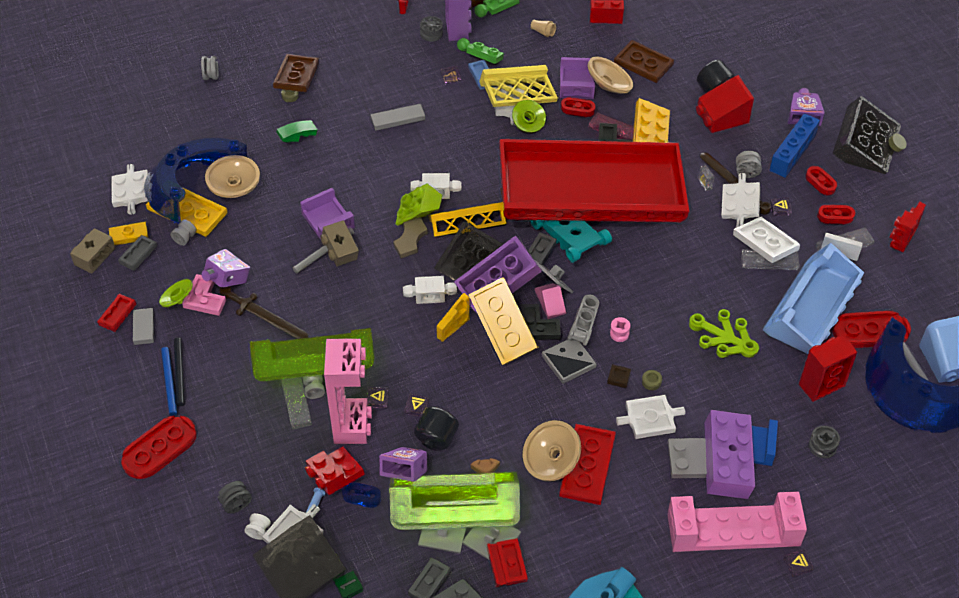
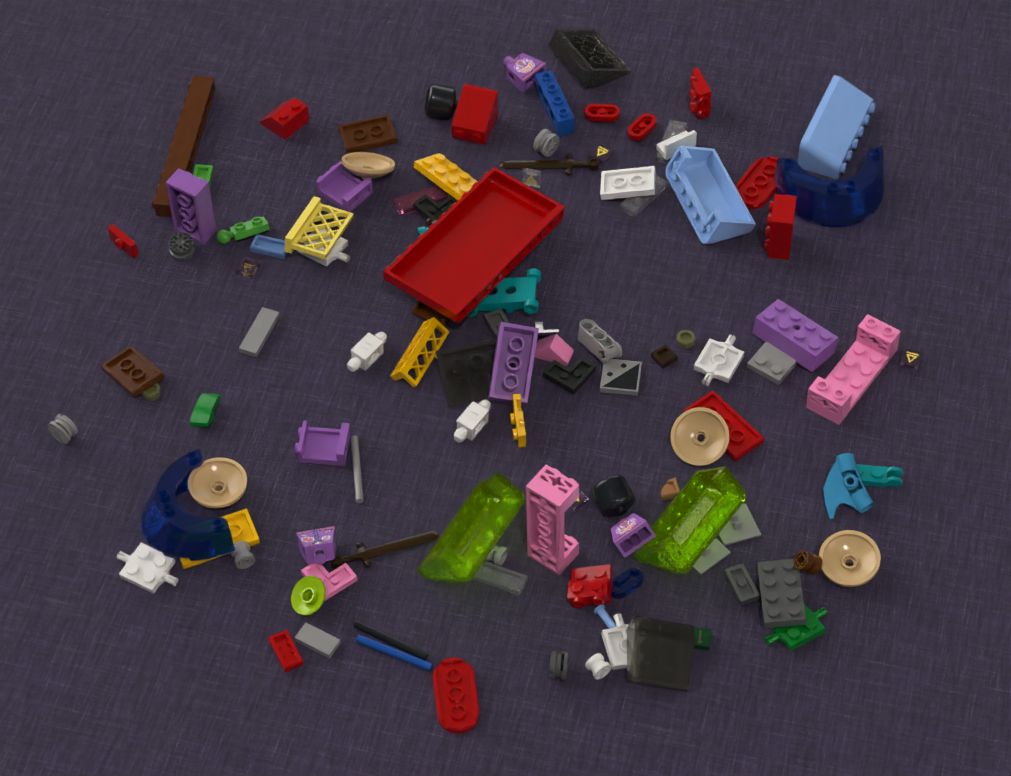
camera: 50 degrees left, 0 degrees up
(92, 250) = (197, 632): dark tan brick -> none
(128, 233) = (199, 597): yellow plate -> none
(137, 252) = (231, 601): dark grey plate -> none
(339, 243) = (367, 450): dark tan brick -> none
(413, 232) = (397, 397): dark tan tile -> none
(418, 203) = (375, 375): lime slope -> none
(503, 321) = (557, 389): yellow plate -> none
(507, 562) = (767, 526): red plate -> none
(529, 109) = (354, 244): lime dish -> none
(546, 28) = (262, 171): tan cone -> none
(578, 107) = (374, 208): red plate -> none
(620, 329) = (624, 326): bright pink wheel -> none
(725, 336) = (708, 263): lime plant -> none
(741, 200) = (576, 172): white plate -> none
(764, 443) = (804, 305): blue panel -> none
(824, 440) = (830, 276): dark grey wheel -> none
(897, 142) = (611, 43): tile -> none

